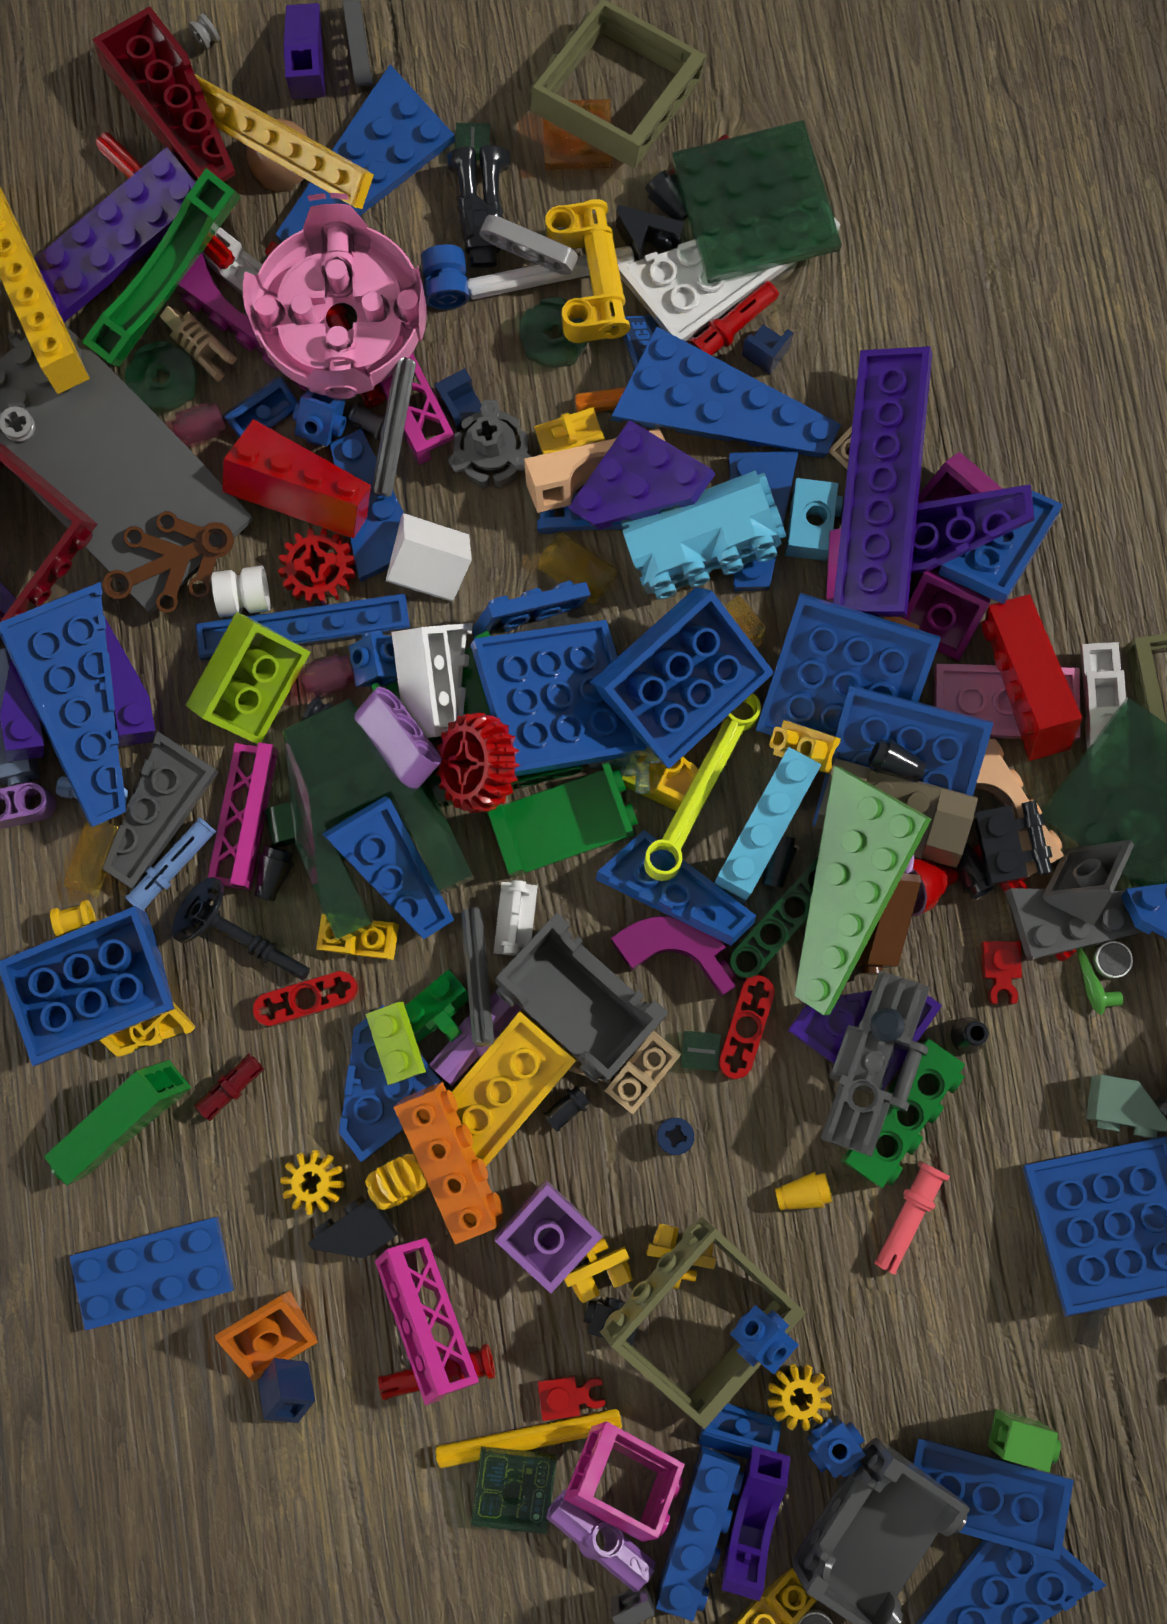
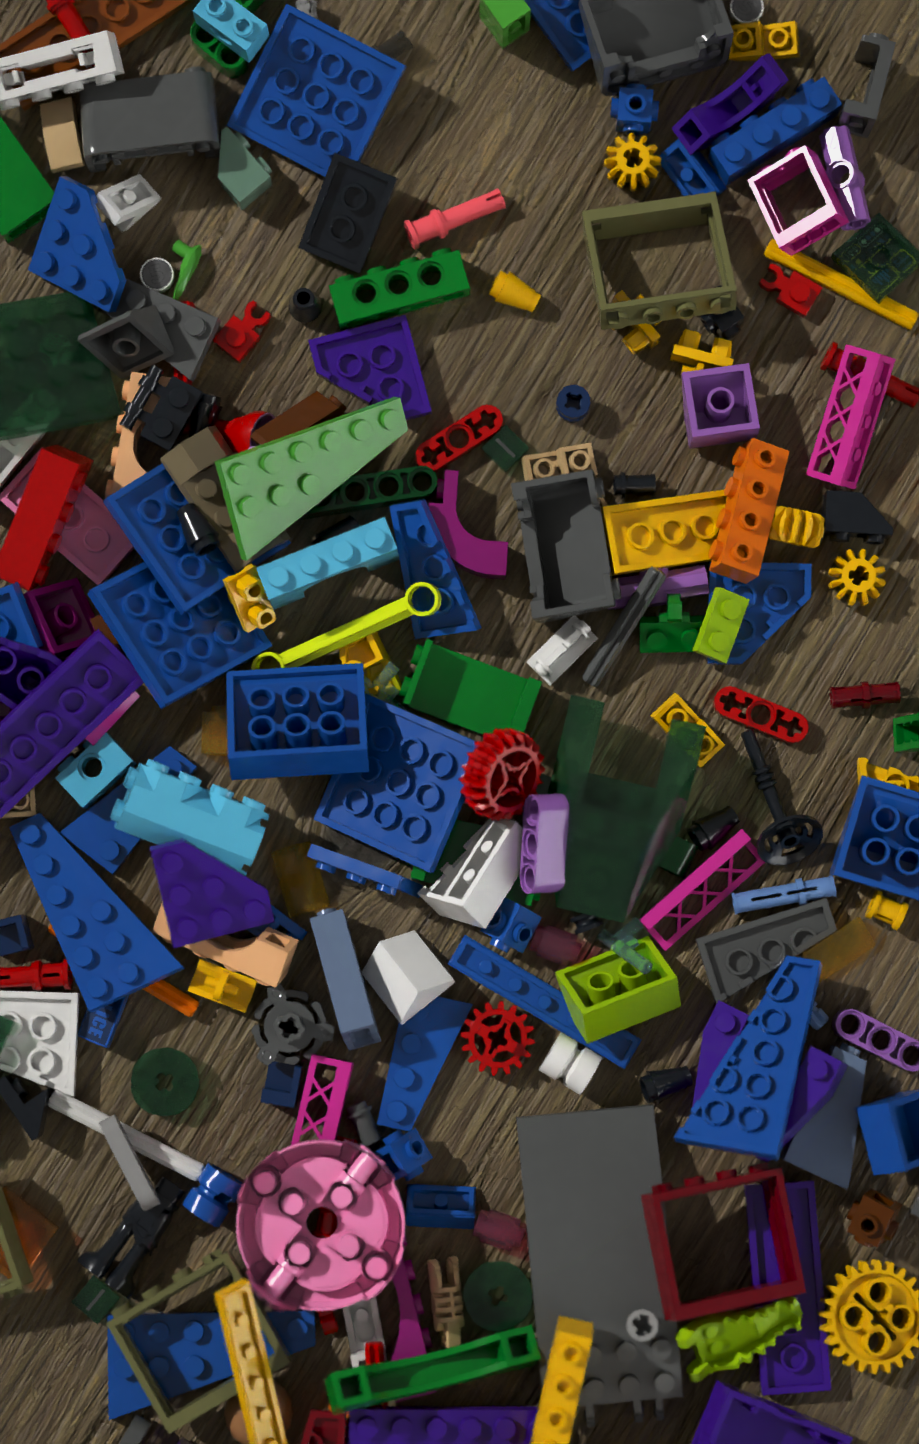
camera: 140 degrees left, 5 degrees up
(152, 637) = (664, 1083): none -> black cone
(174, 558) = (602, 1127): reddish brown plant -> none
(268, 717) = (624, 944): none -> clear light blue hose
(294, 481) = (463, 1114): red wedge -> none
(345, 91) = (175, 1419): none -> olive window
(388, 860) = (622, 756): blue wing -> none
(393, 427) = (354, 1095): dark grey axle -> none
(478, 514) = (345, 979): none -> sand blue slope
(602, 267) = (88, 1097): yellow piece -> none
(763, 1339) = (627, 214): blue brick -> none
(863, 1059) = (396, 345): dark grey piece -> none
(1003, 1144) = (348, 212): none -> black plate

